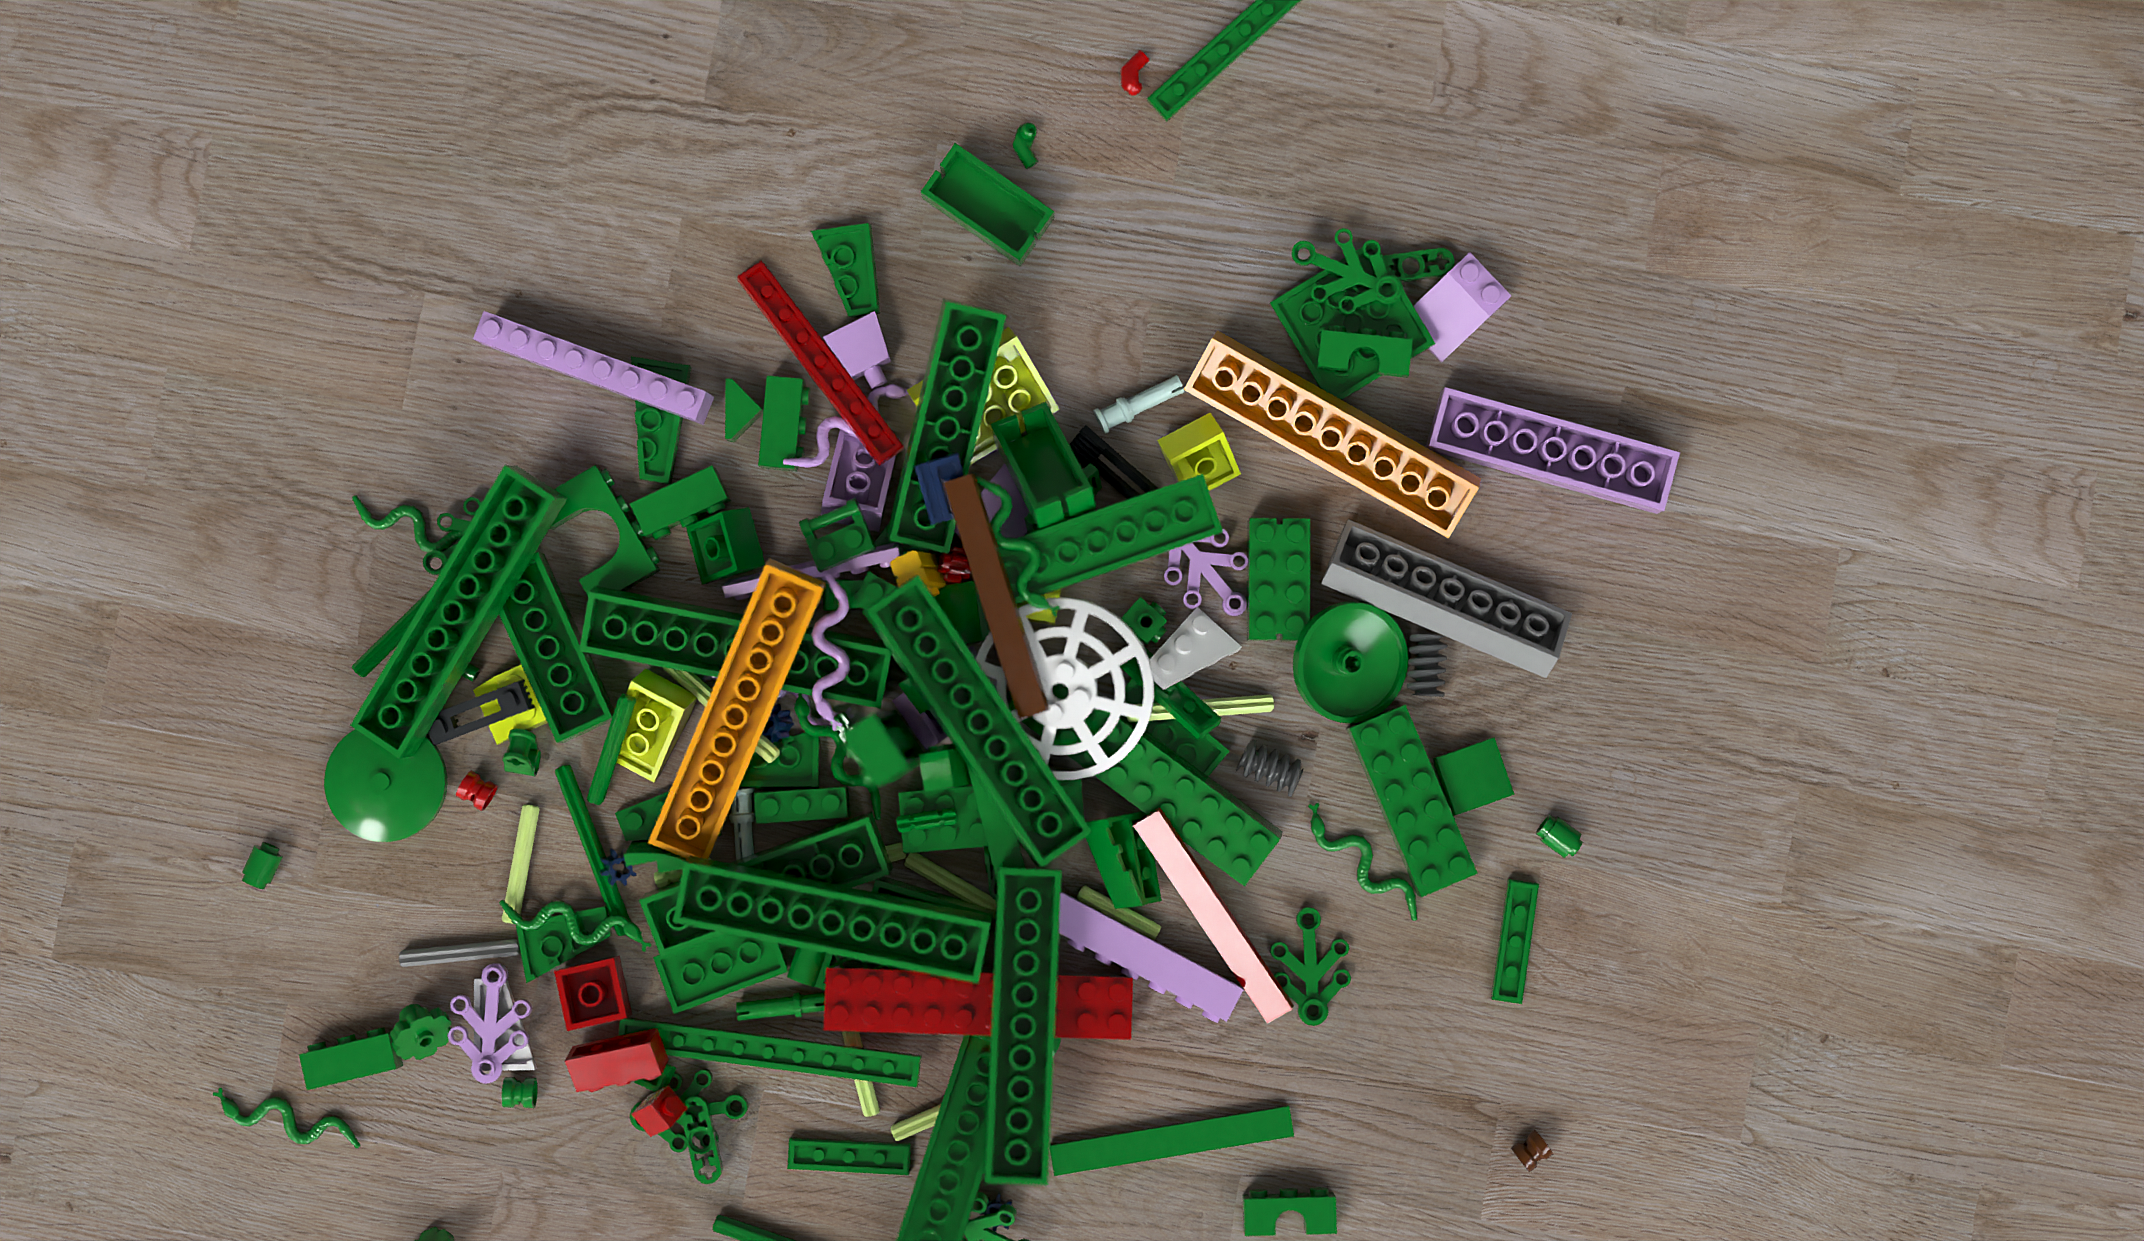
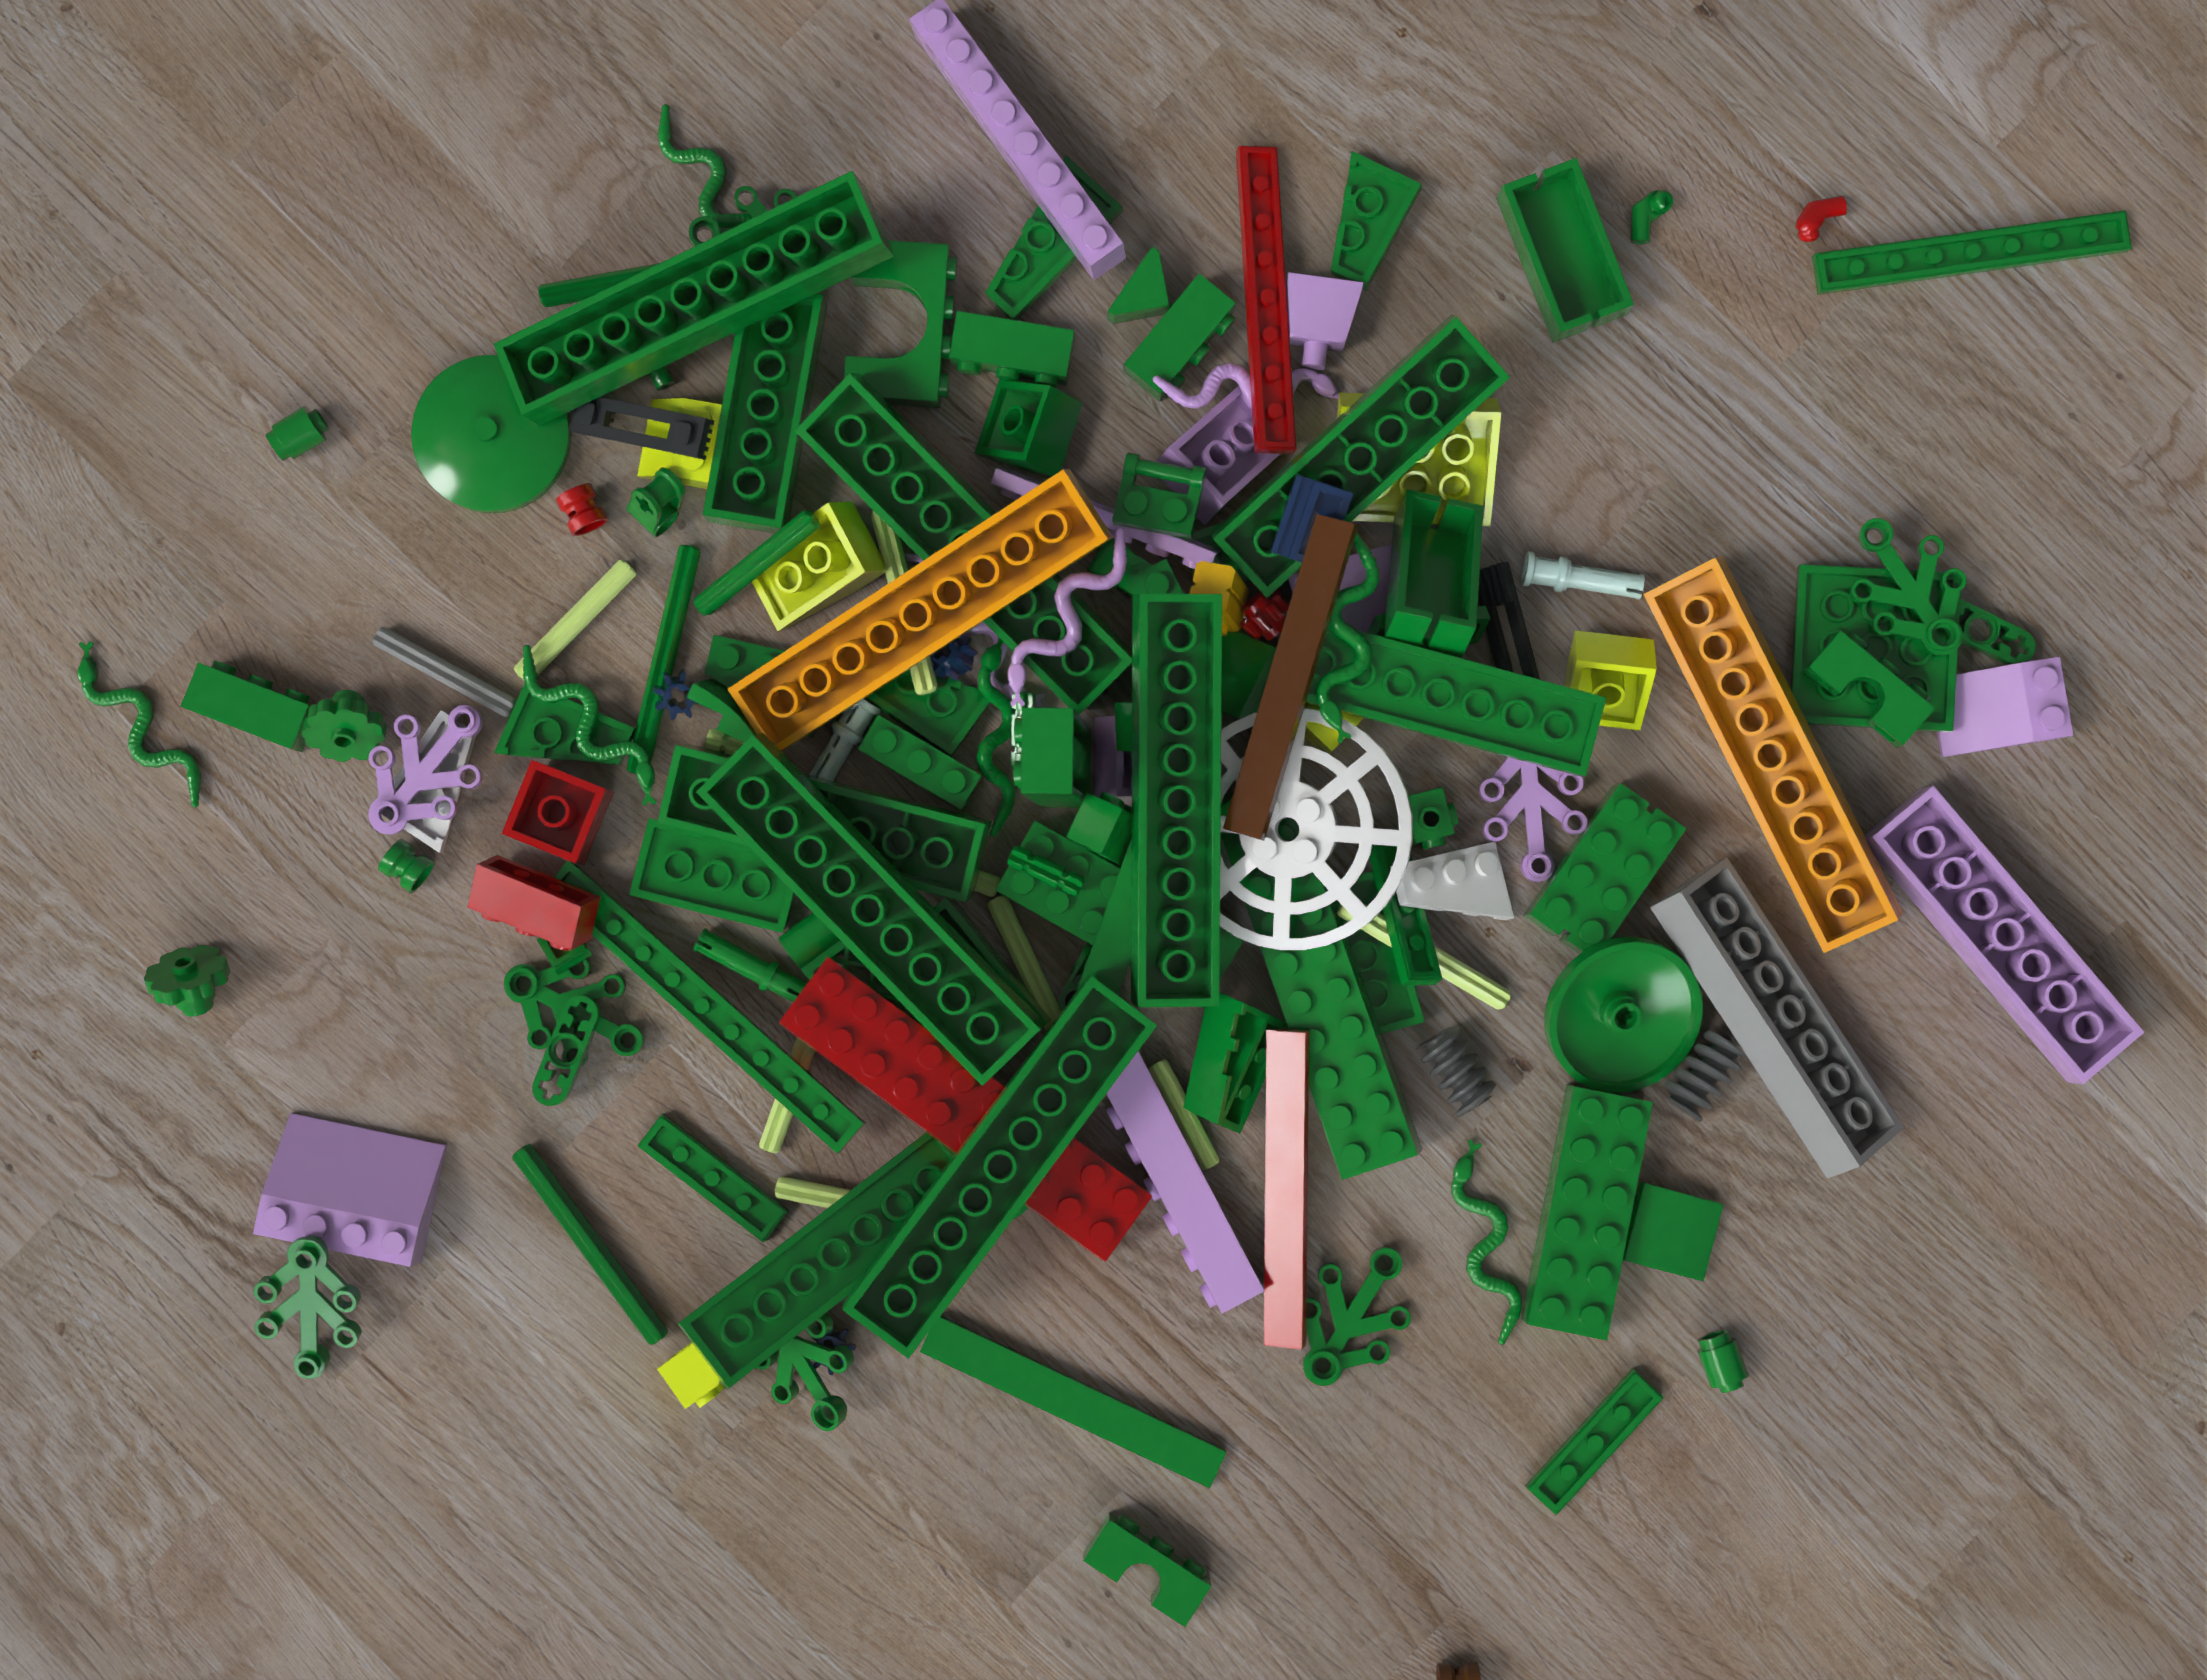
camera: 35 degrees right, 0 degrees up
(659, 1111) = (542, 988): red brick -> none

